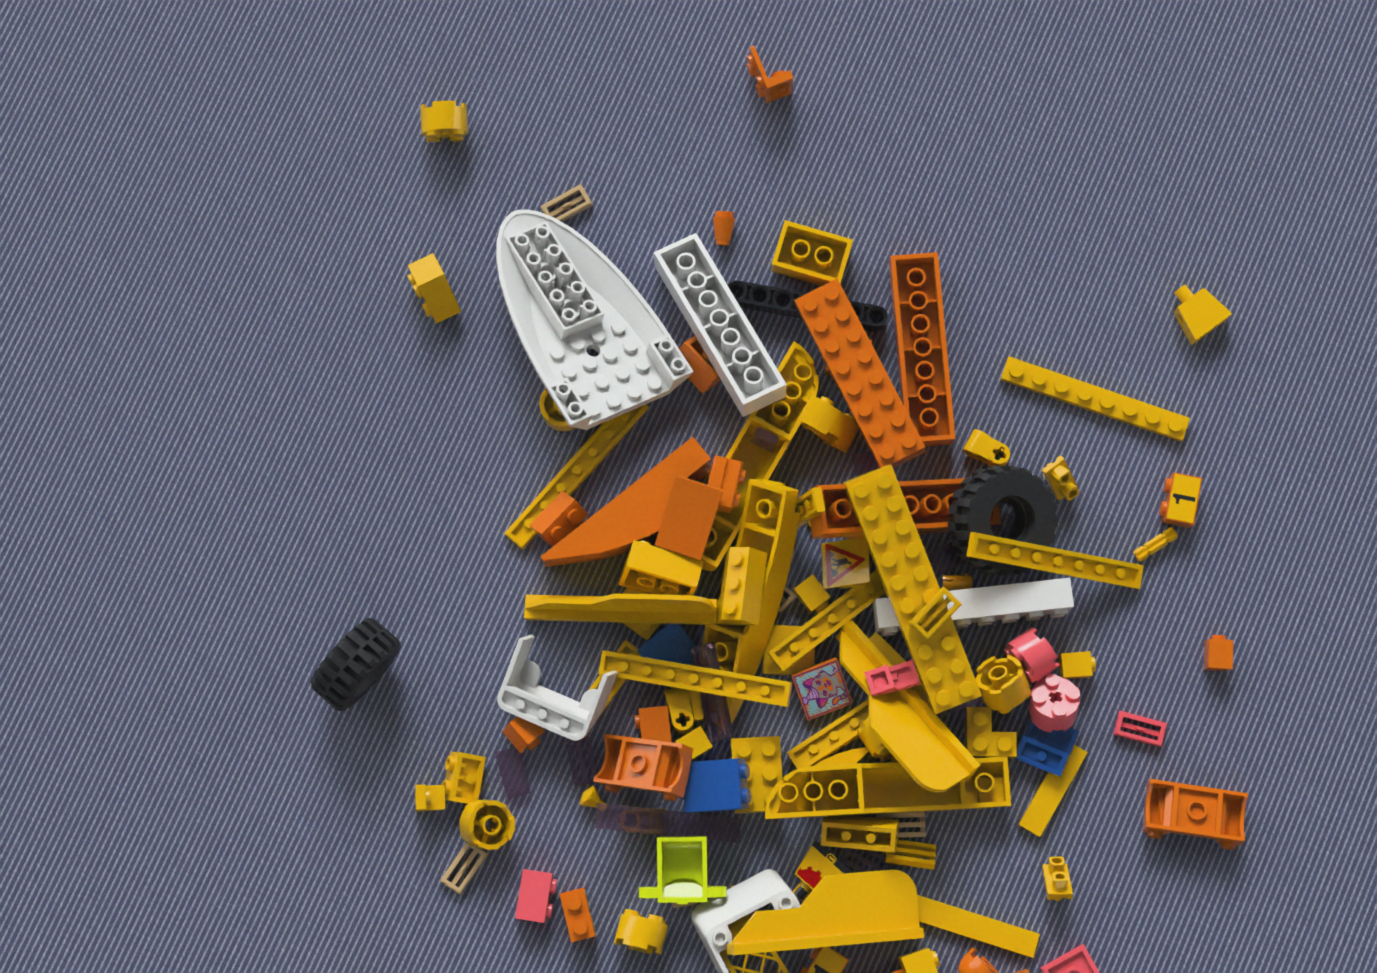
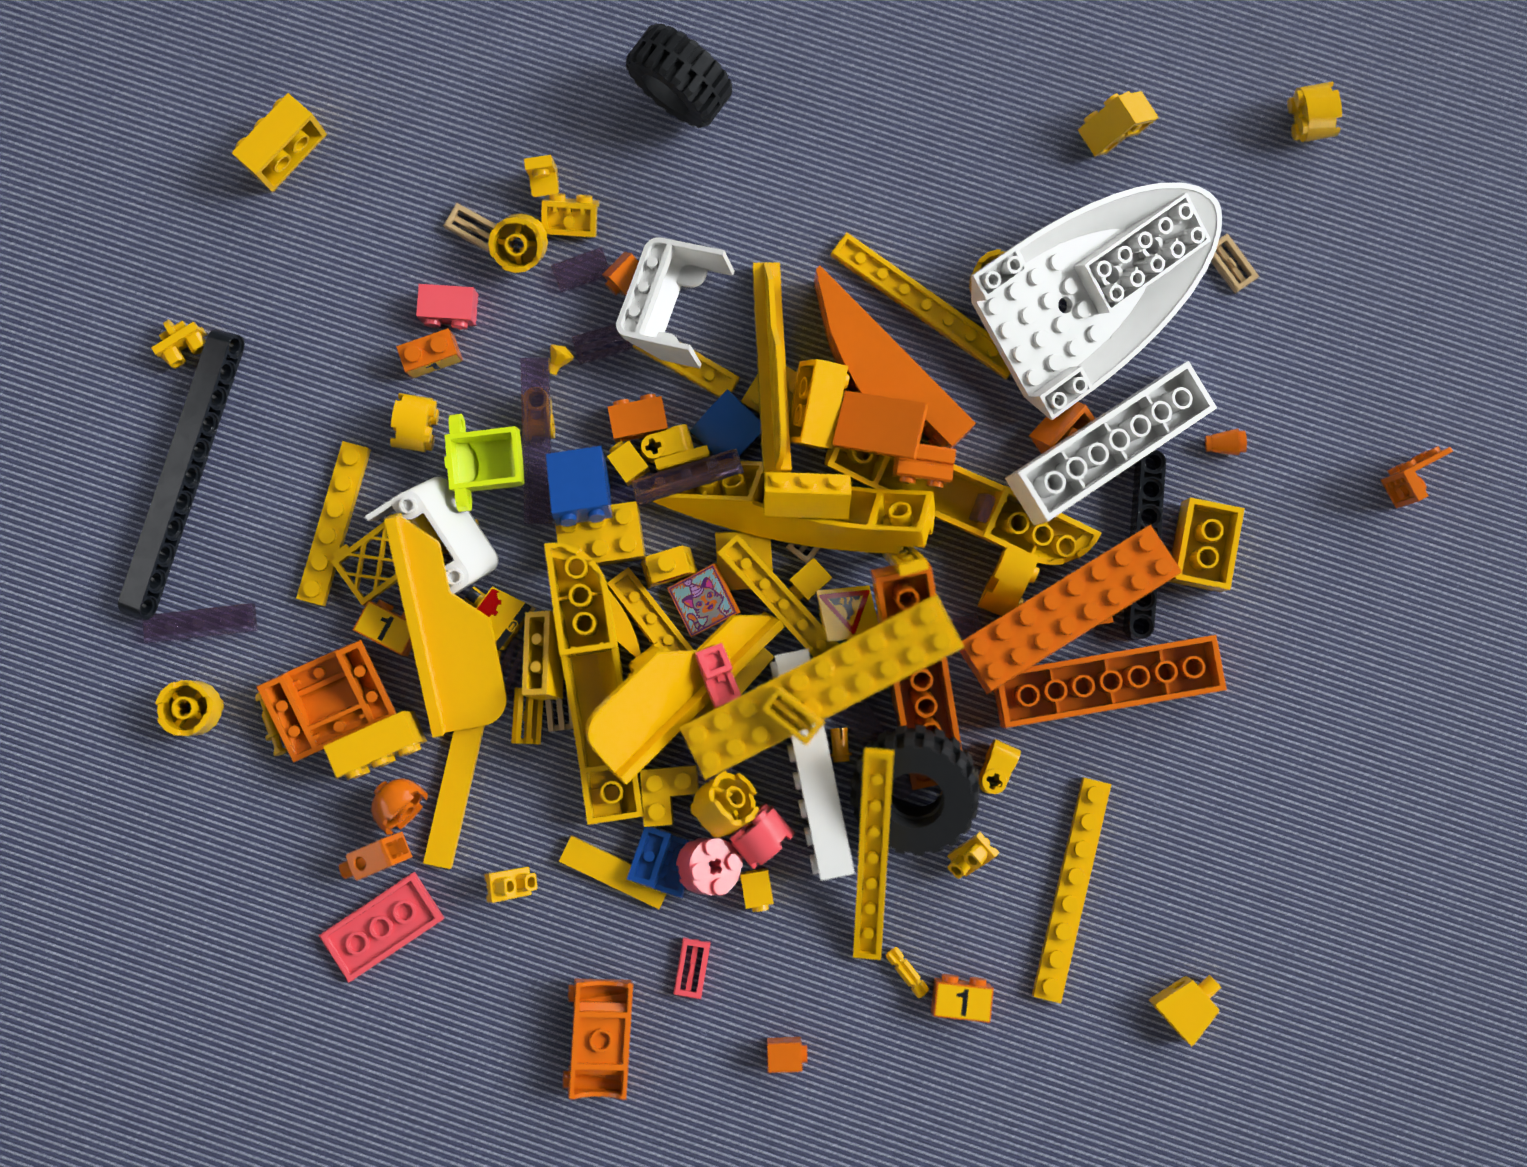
camera: 80 degrees right, 5 degrees up
(558, 519) = (867, 287): orange brick -> none
(645, 766) = (594, 408): orange piece -> none
(696, 678) = (698, 456): yellow plate -> none
(791, 720) = (668, 566): none -> yellow torso

